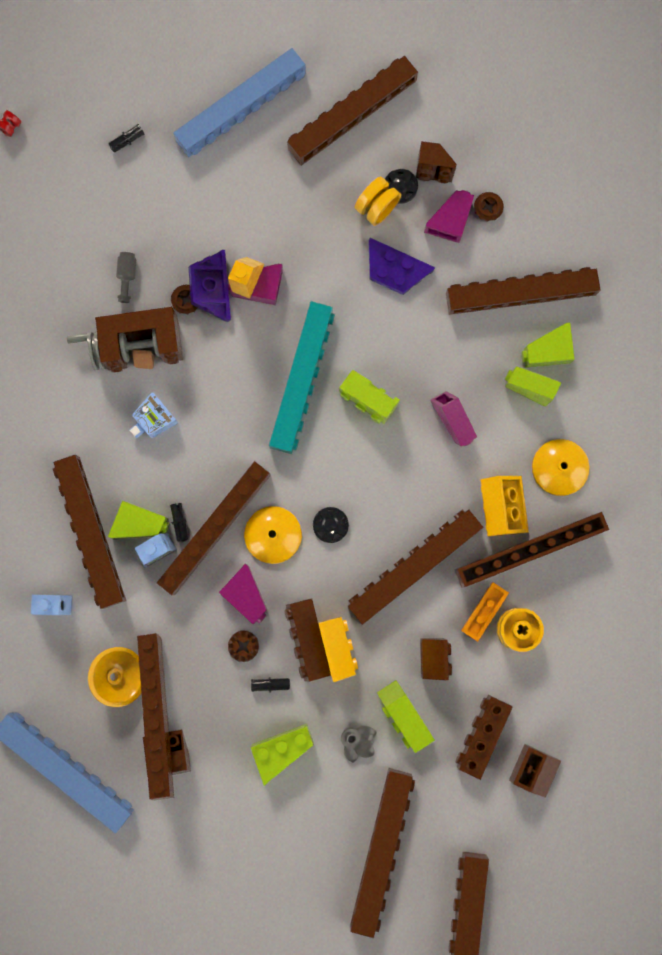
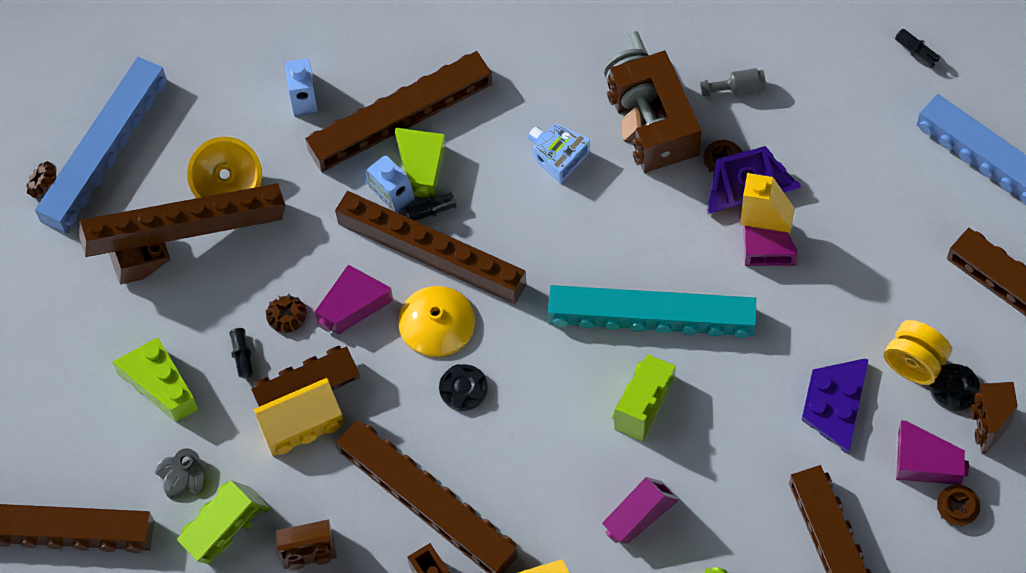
camera: 85 degrees right, 20 degrees down
(90, 827) = (41, 179): none -> reddish brown gear

